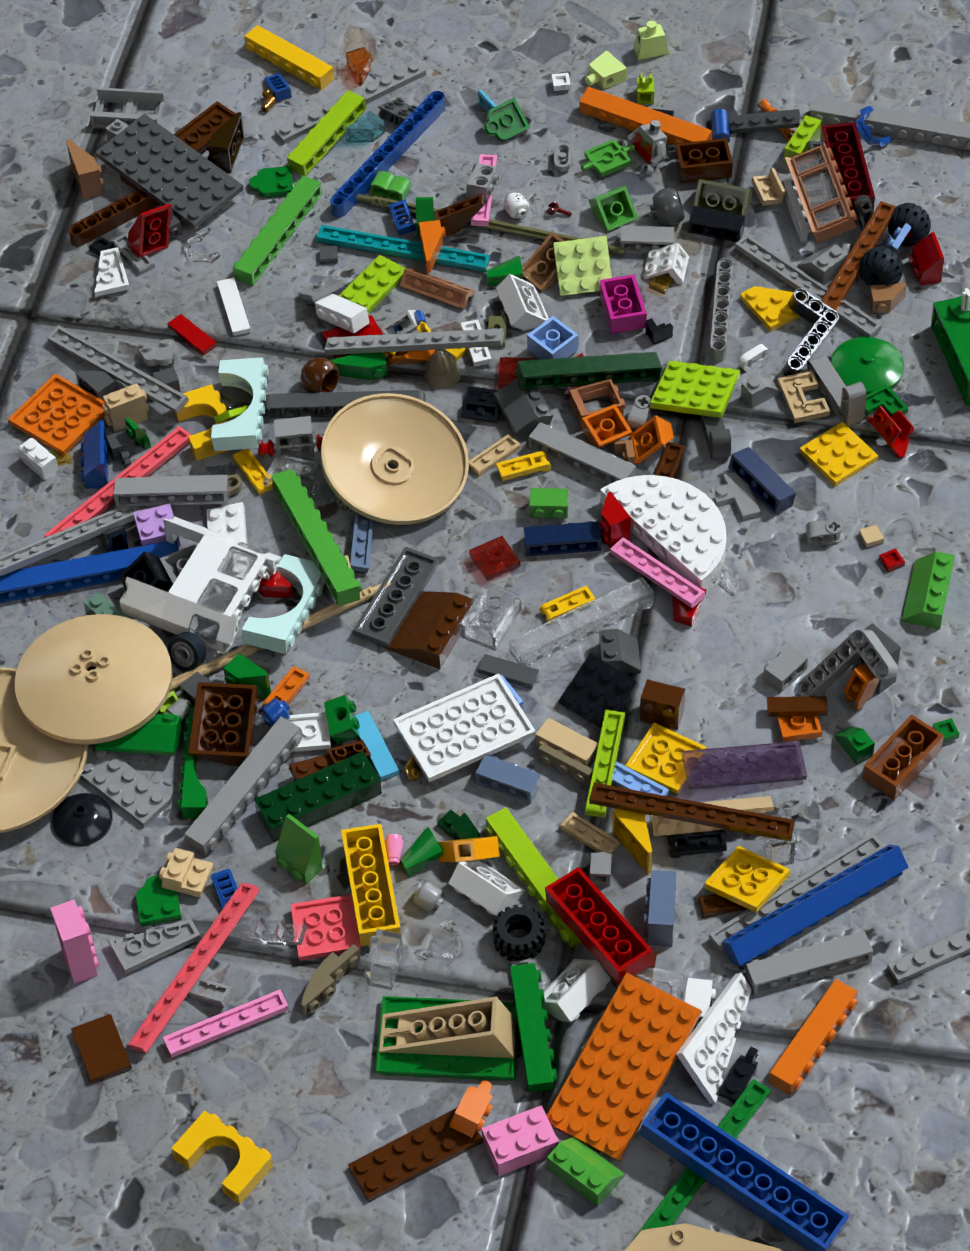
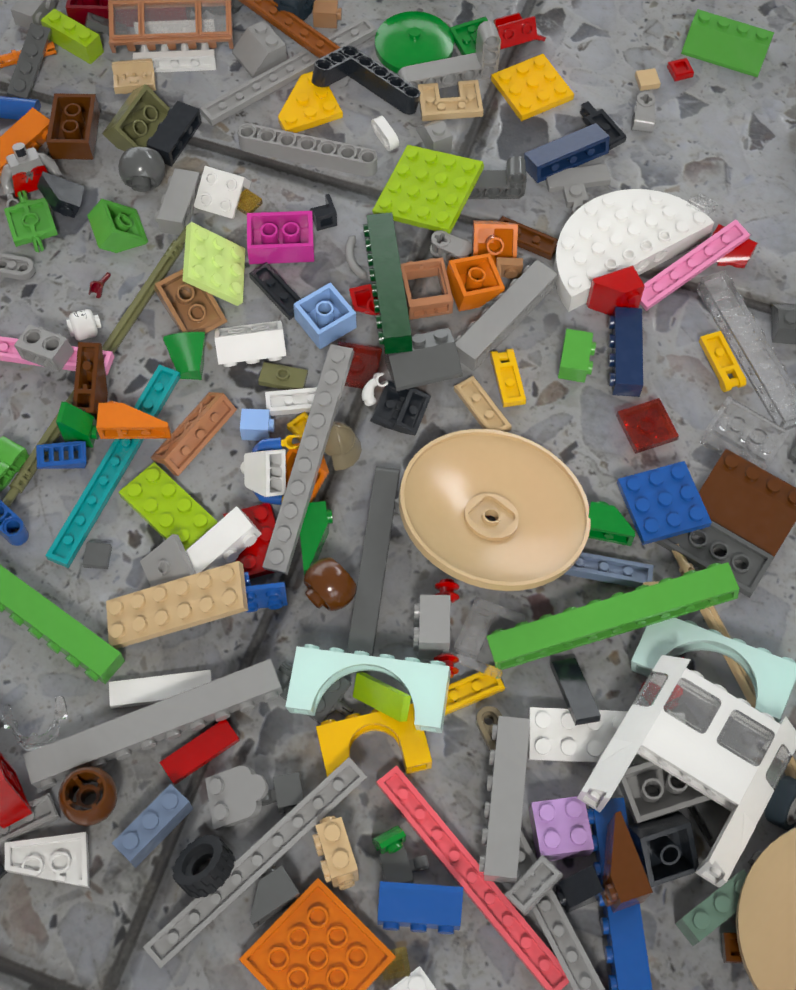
camera: 85 degrees left, 10 degrees up
(110, 342) = (213, 875): none -> black tyre
(113, 510) = (533, 885): none -> light grey plate
(124, 544) = (623, 874): none -> reddish brown slope
(136, 316) = (152, 825): none -> sand blue brick
(150, 277) = (105, 793): none -> reddish brown wheel
(204, 302) = (153, 723): none -> light grey brick
(257, 526) = (575, 691): none -> black tile
(288, 293) = (176, 605): none -> tan plate
(309, 332) = (265, 596): none -> blue bracket
(400, 536) = (609, 524): none -> green slope
(421, 567) = (663, 502): none -> blue plate
(448, 318) = (256, 424): none -> light blue brick
(492, 380) = (368, 390): none -> white arm
(581, 312) = (275, 289): none -> black tile
(632, 168) = (61, 194): none -> black slope
(802, 505) = (593, 115): none -> black hinge

